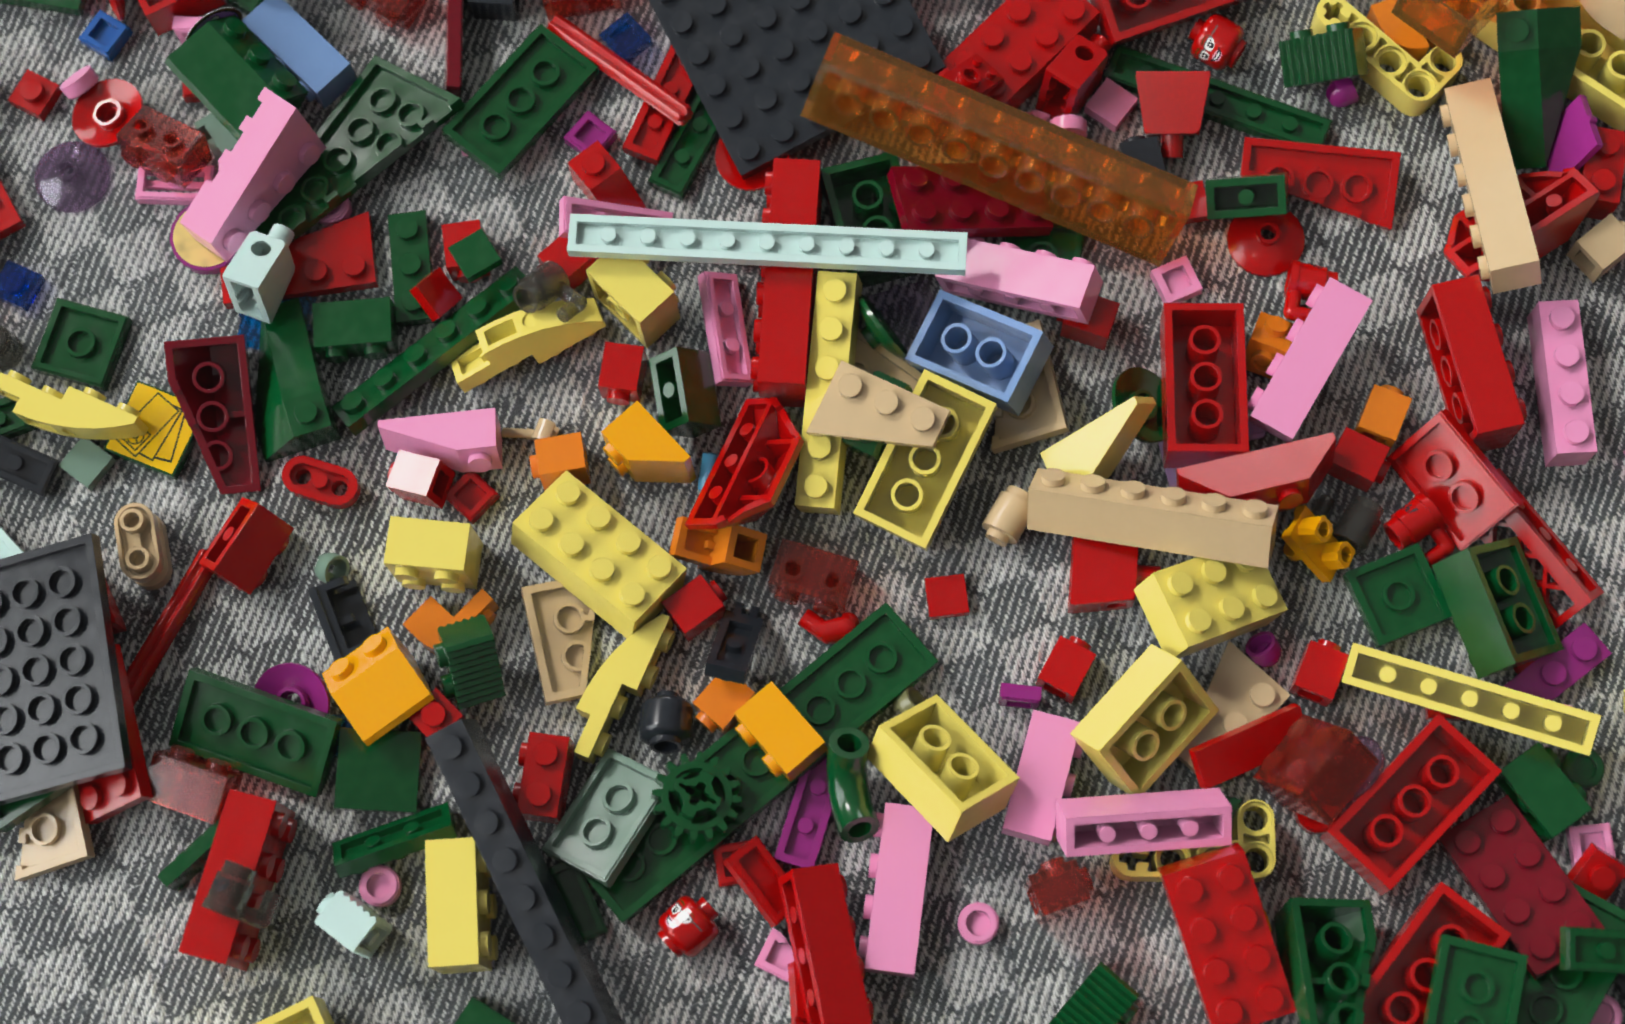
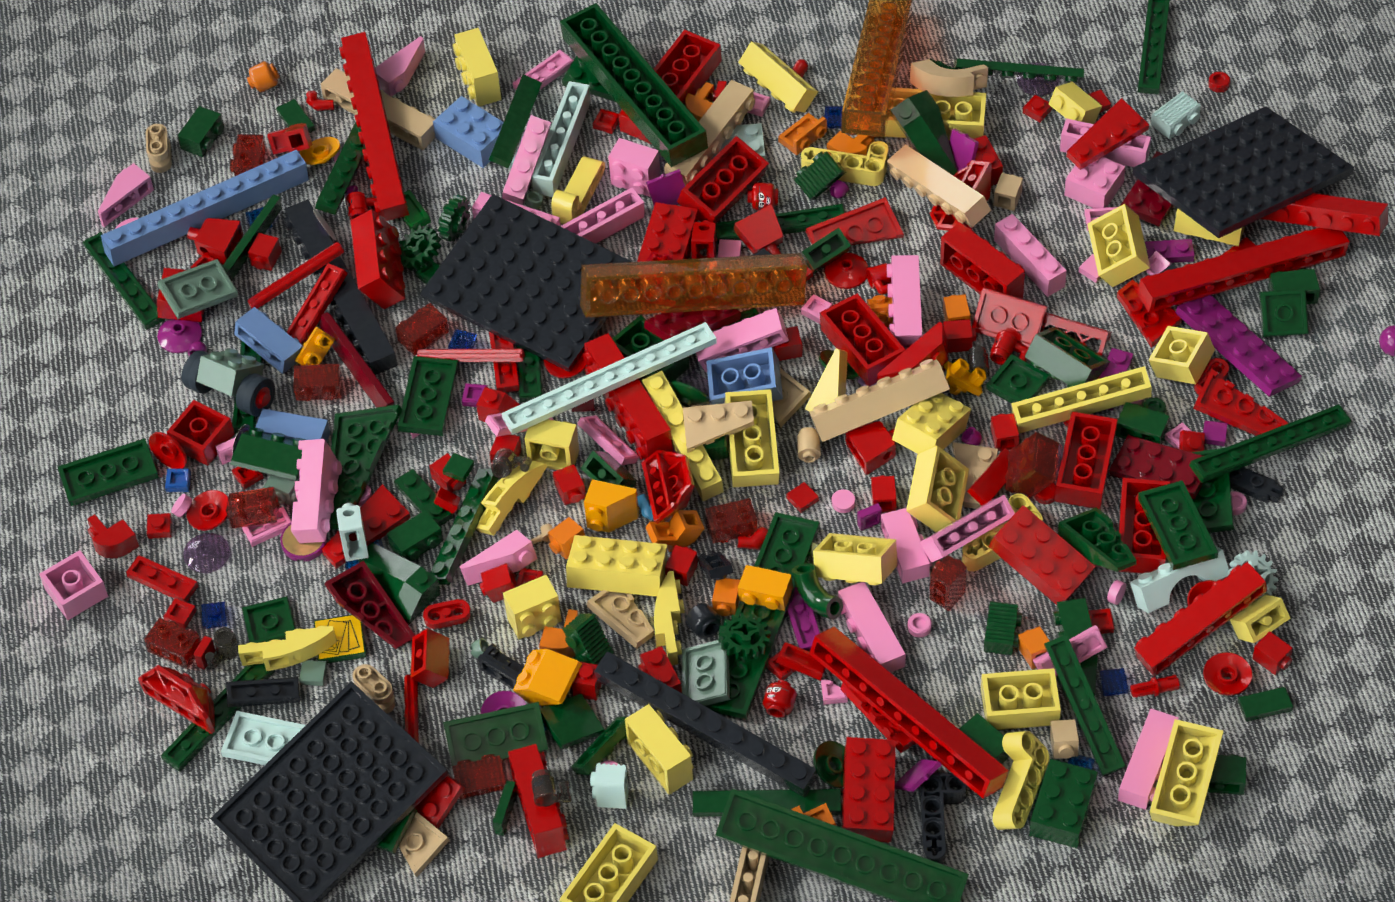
camera: 35 degrees left, 20 degrees down
(1002, 640) = (843, 501): none -> bright pink tile

